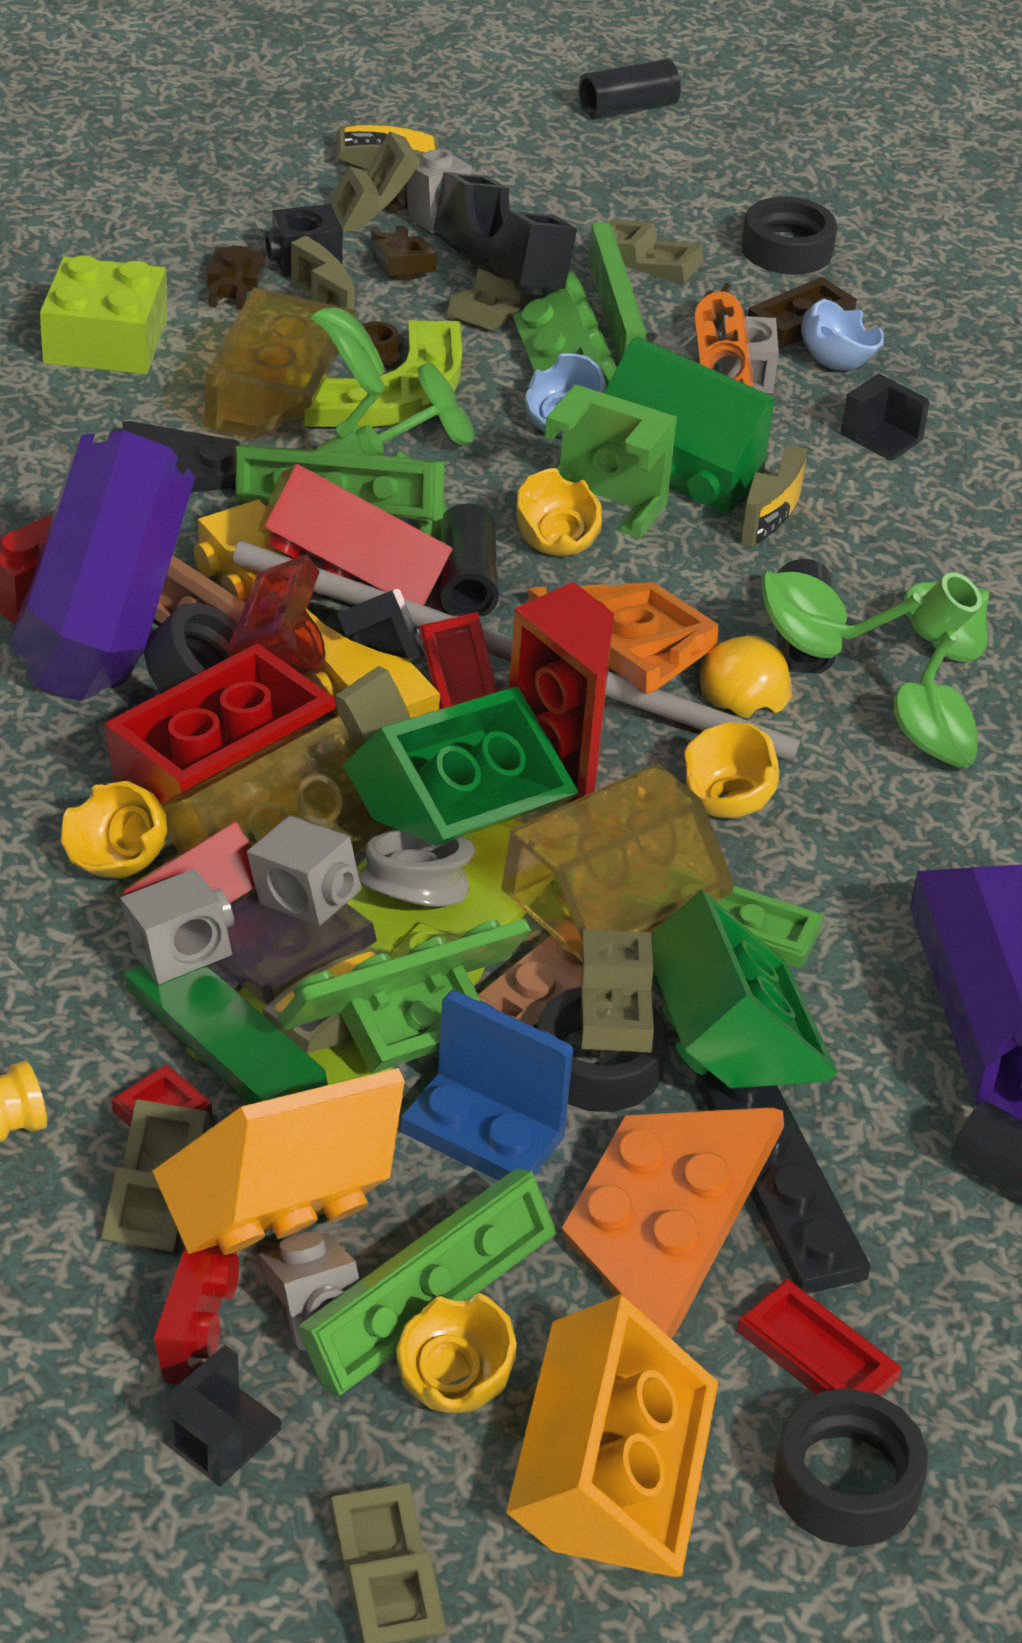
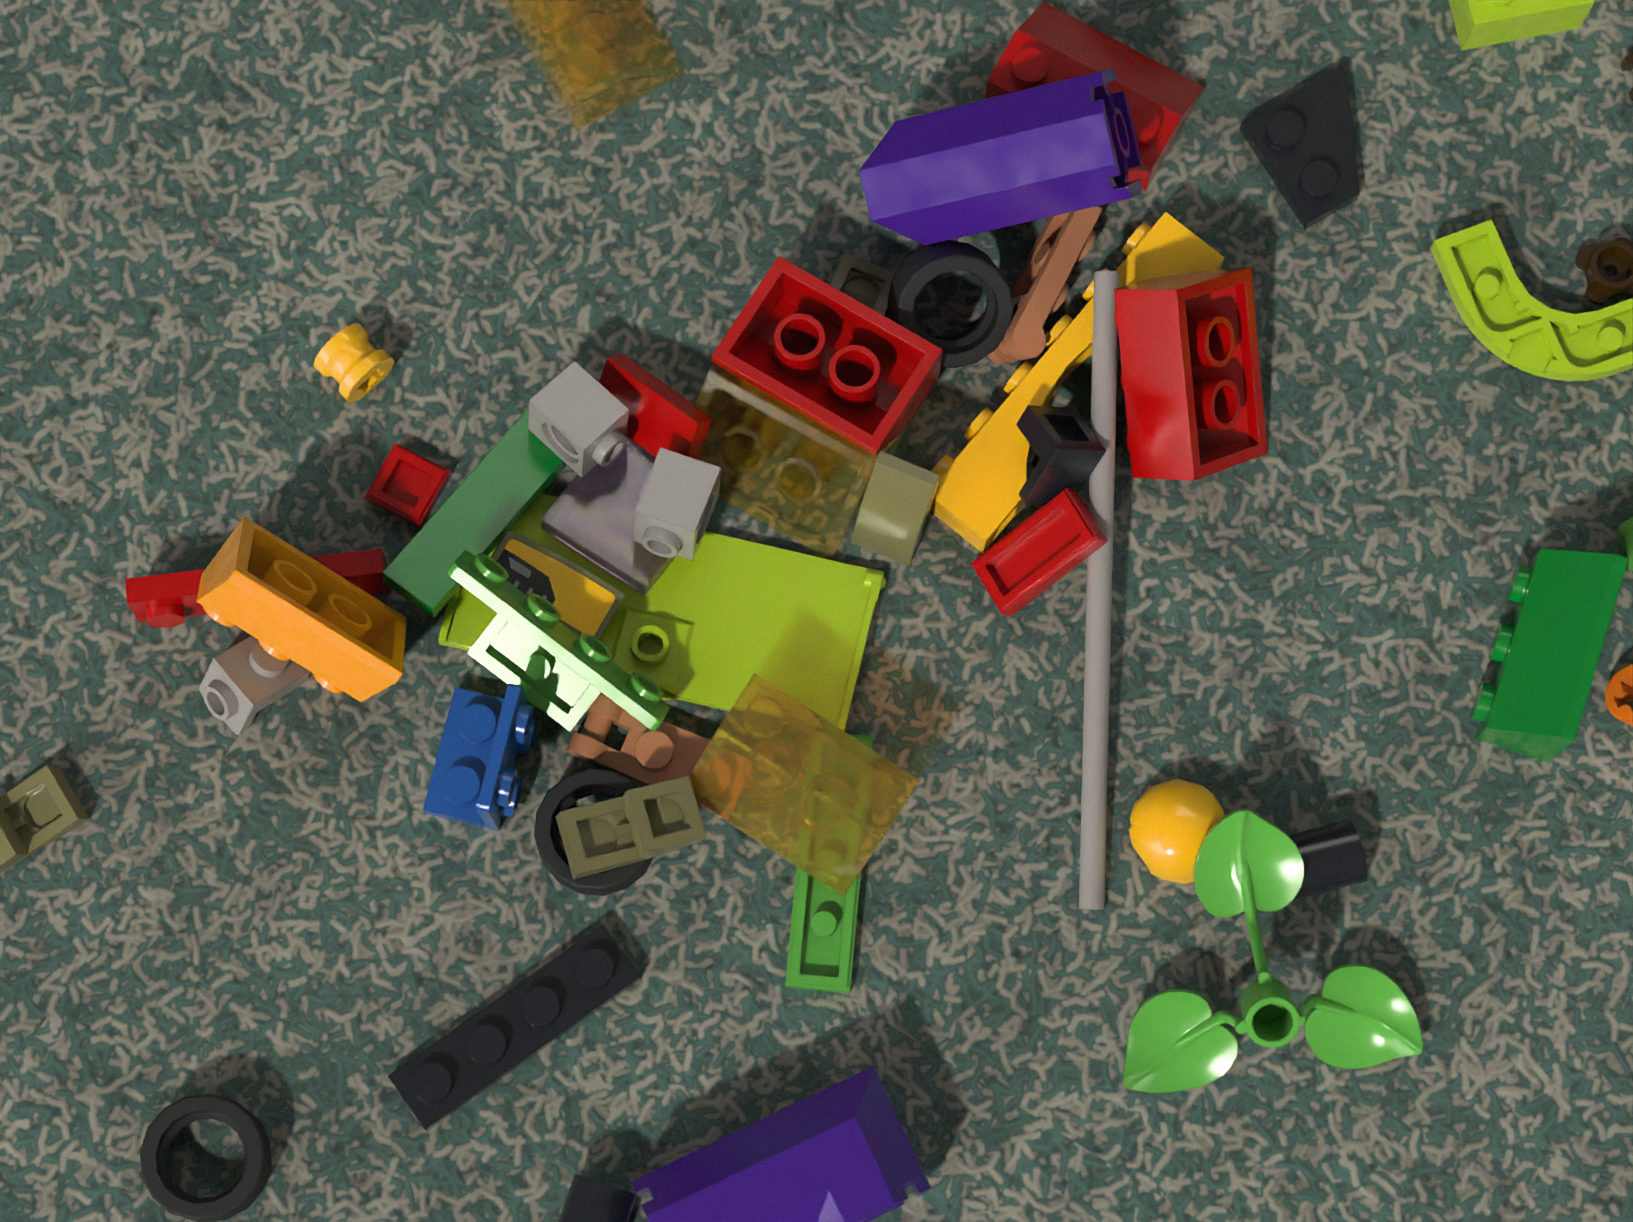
camera: 75 degrees right, 35 degrees up
(115, 830) = (691, 314): yellow hair -> none
(136, 1204) = (326, 511): olive slope -> none
(214, 1420) = (95, 656): black panel -> none
(268, 365) = (1486, 181): clear yellow slope -> none
(278, 616) = (992, 350): clear red plate -> none
(366, 366) = (1403, 276): bright green plant -> none
(393, 484) = (1288, 327): bright green tile -> none
(416, 869) = (741, 600): light grey piece -> none
(449, 1261) = (281, 769): bright green tile -> none
(454, 1342) = (222, 799): yellow hair -> none
(460, 769) = (872, 602): green slope -> none
(471, 569) = (1245, 496): black pin -> none
(551, 385) = (1589, 503): light blue hair -> none
(557, 514) = (1374, 567): yellow hair -> none
(563, 673) = (998, 666): red slope -> none
(614, 1441) = (166, 966): light orange slope -> none
(617, 450) = (1468, 552): bright green panel -> none
(651, 632) = (1191, 695): orange wing -> none
(668, 1203) = (426, 939): orange wing -> none
(733, 760) = (1010, 829): yellow hair -> none
(734, 1001) = (671, 939): green slope -> none
(773, 497) = (1480, 780): olive slope -> none
(815, 1343) = (330, 1106): red tile -> none

